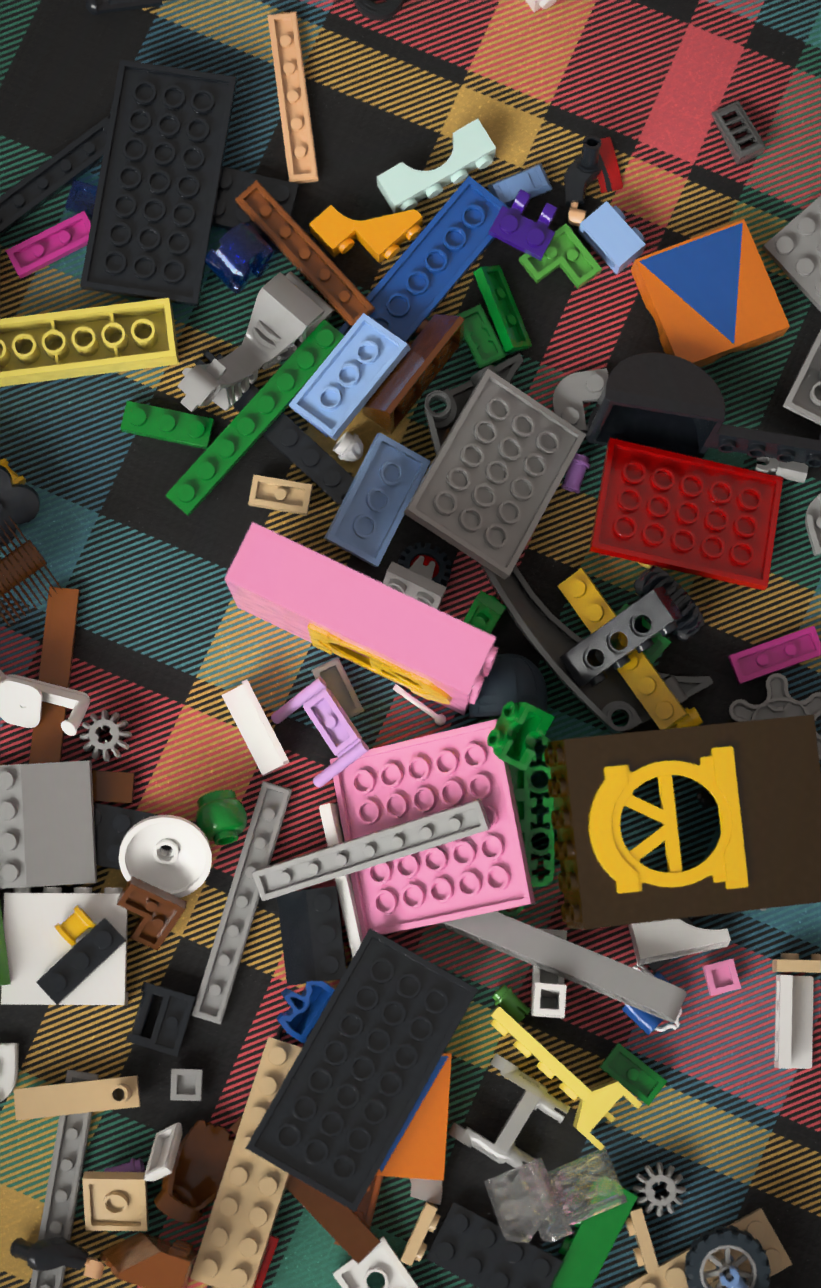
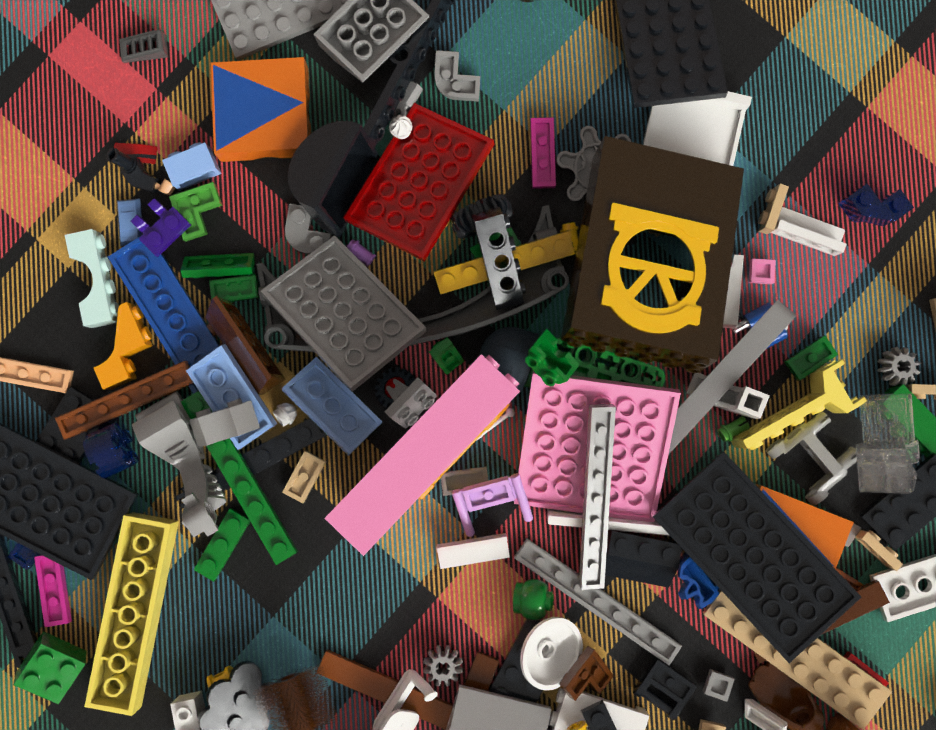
camera: 75 degrees left, 5 degrees up
(316, 378) = (224, 423): none -> light grey brick
(745, 470) = (400, 127): none -> white plate

